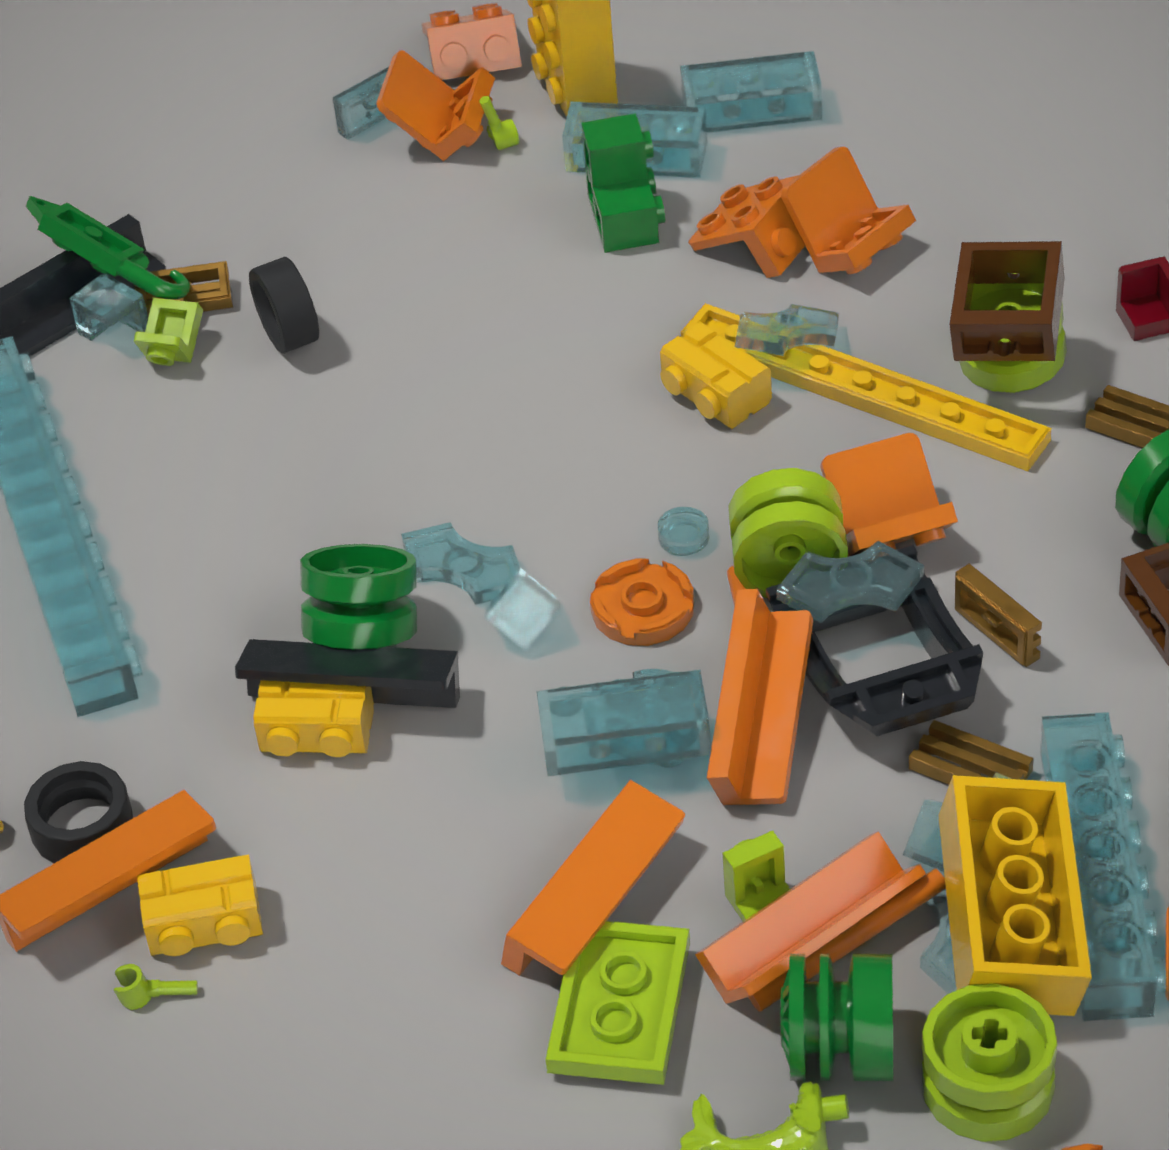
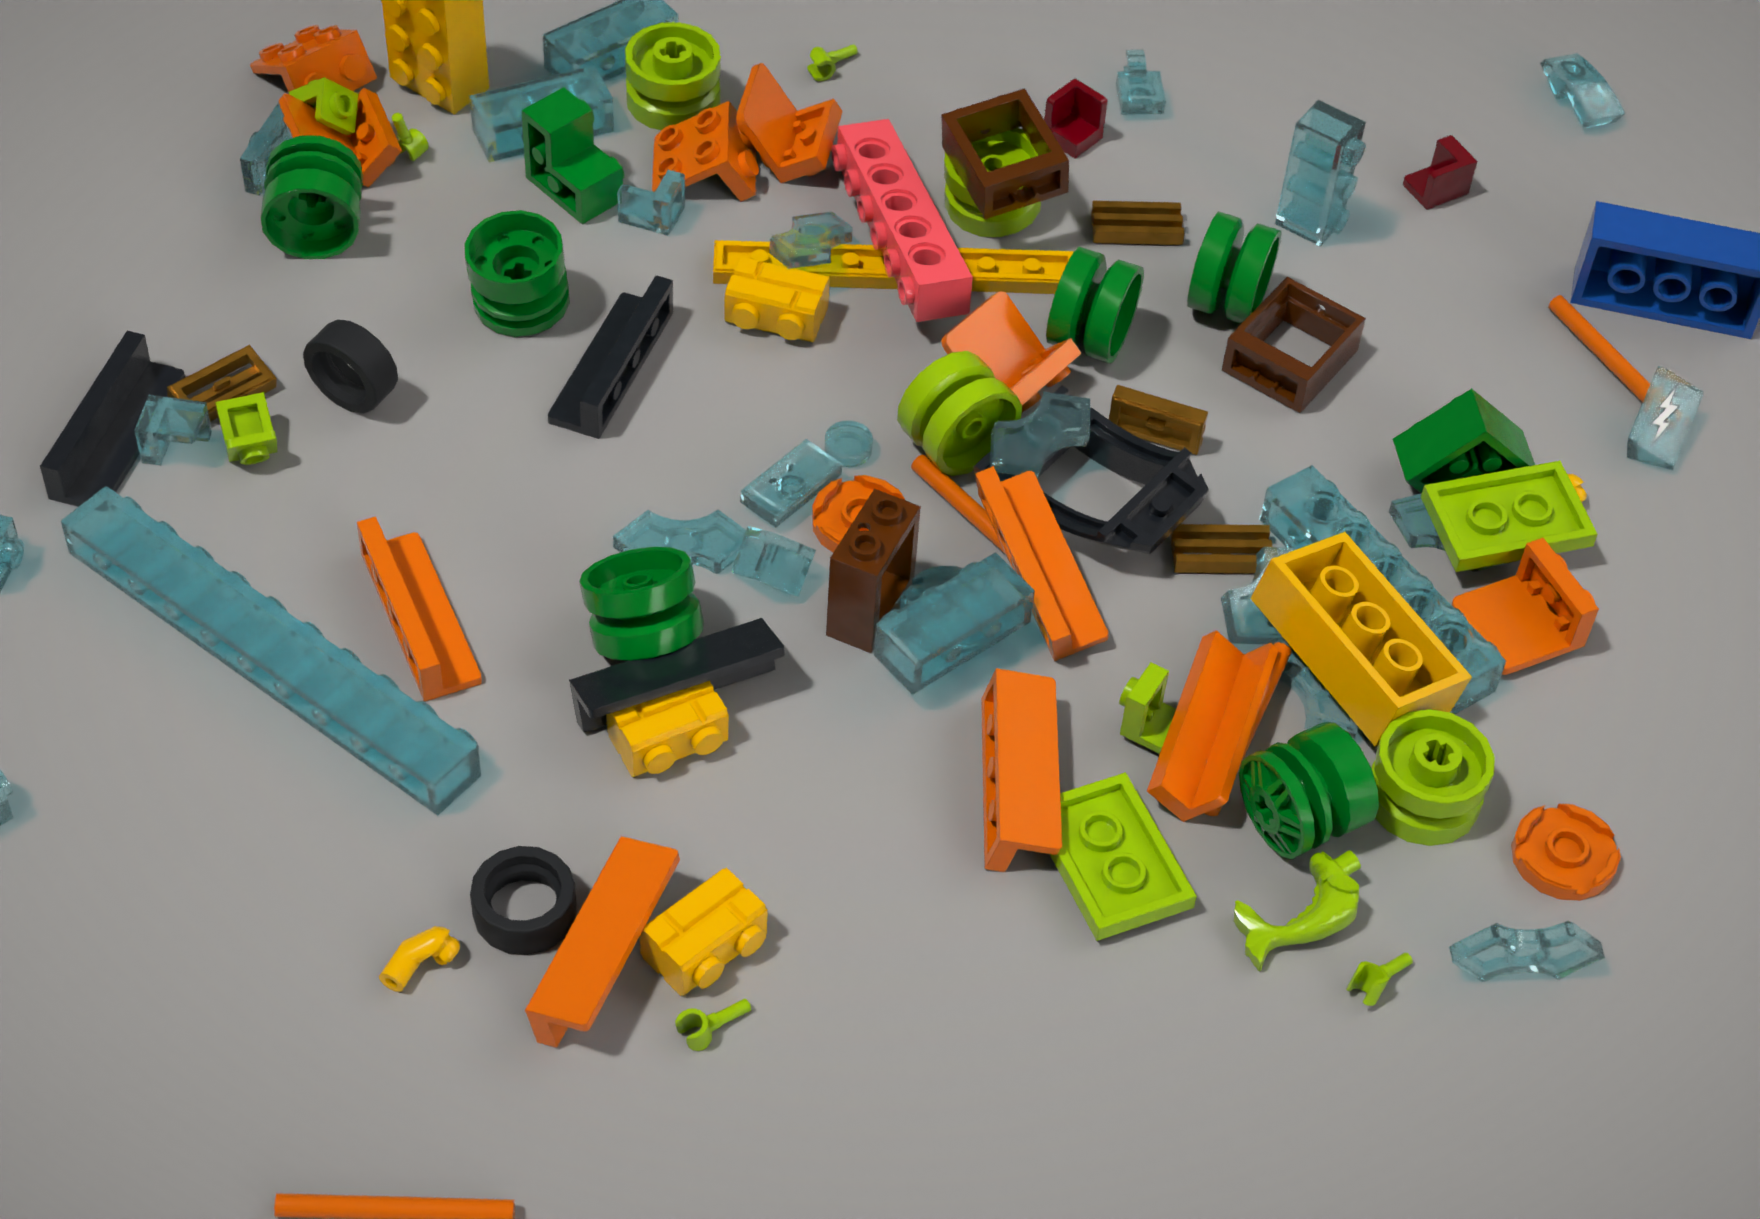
camera: 40 degrees left, 5 degrees up
(103, 247) = (139, 370): green plate -> none
(188, 536) = (418, 611): none -> orange panel
(364, 149) = (312, 197): none -> green wheel
(444, 74) = (333, 104): none -> lime bracket
(488, 271) = (517, 273): none -> green wheel
(532, 381) = (613, 360): none -> black panel
(556, 620) = (871, 568): none -> reddish brown window
(597, 545) = (790, 483): none -> clear light blue plate
(678, 255) = (653, 210): none -> clear light blue panel
(775, 133) = (671, 73): none -> lime wheel
(883, 339) = (902, 221): none -> coral brick
(942, 170) = (824, 62): none -> lime hand
(1007, 479) = (1095, 304): none -> green wheel

